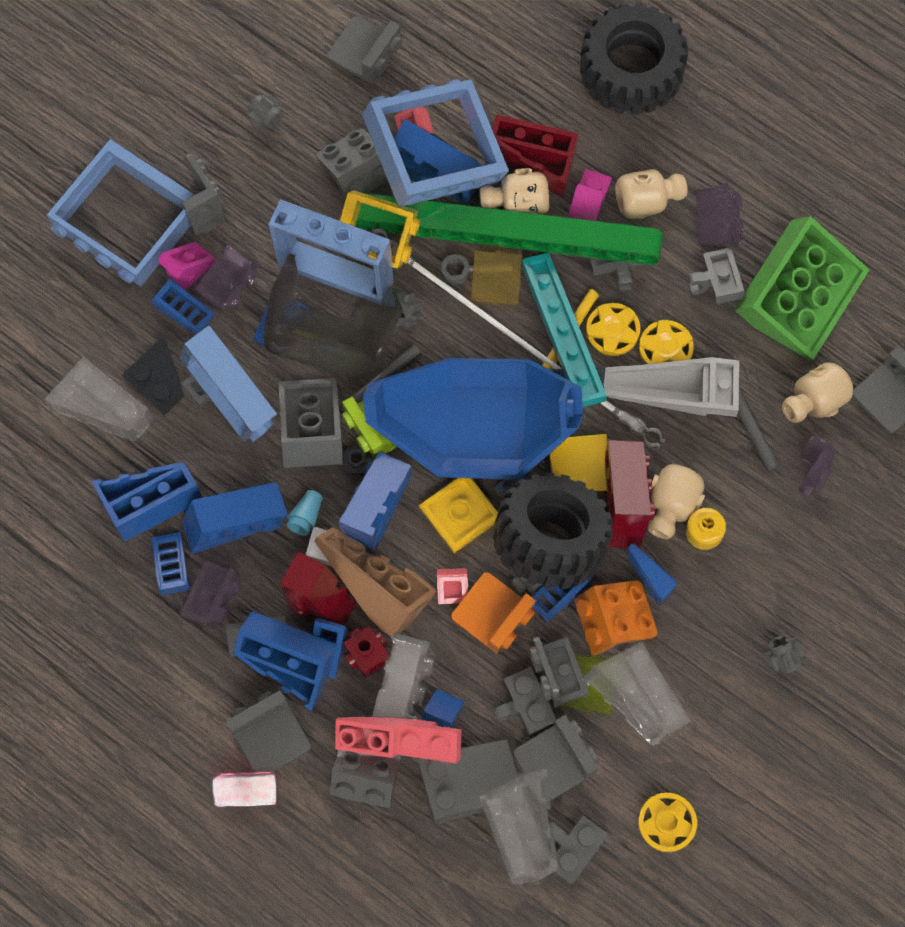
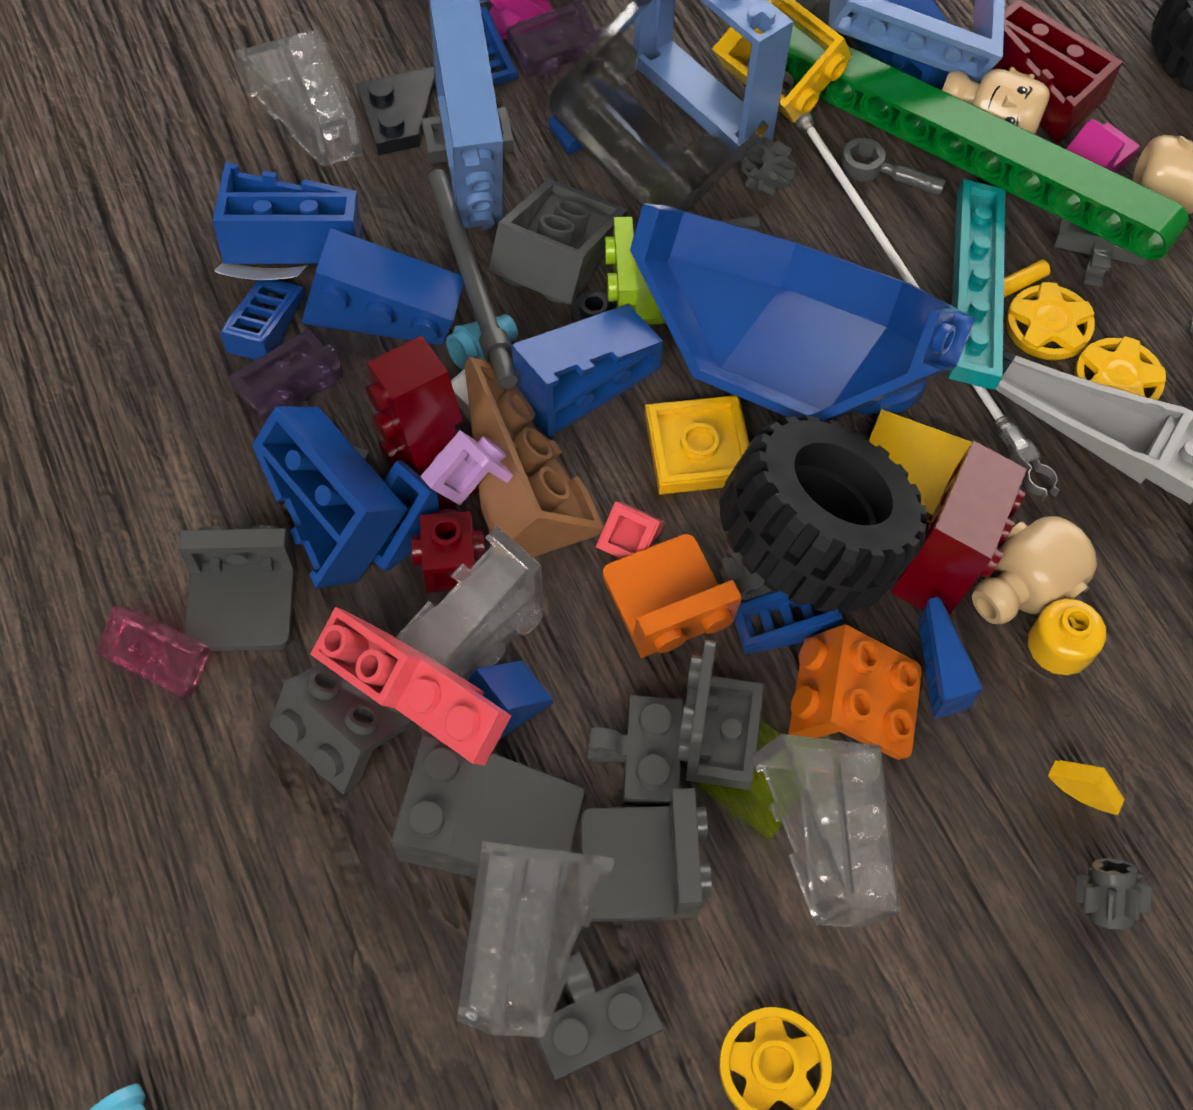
camera: 25 degrees right, 10 degrees down
(151, 535) = (259, 273): none -> white sticker
(321, 518) = (493, 340): none -> dark grey bar
(350, 603) = (464, 465): none -> lavender bracket
(496, 277) = (914, 189): clear yellow piece -> none
(750, 602) = (1088, 785): none -> yellow tile

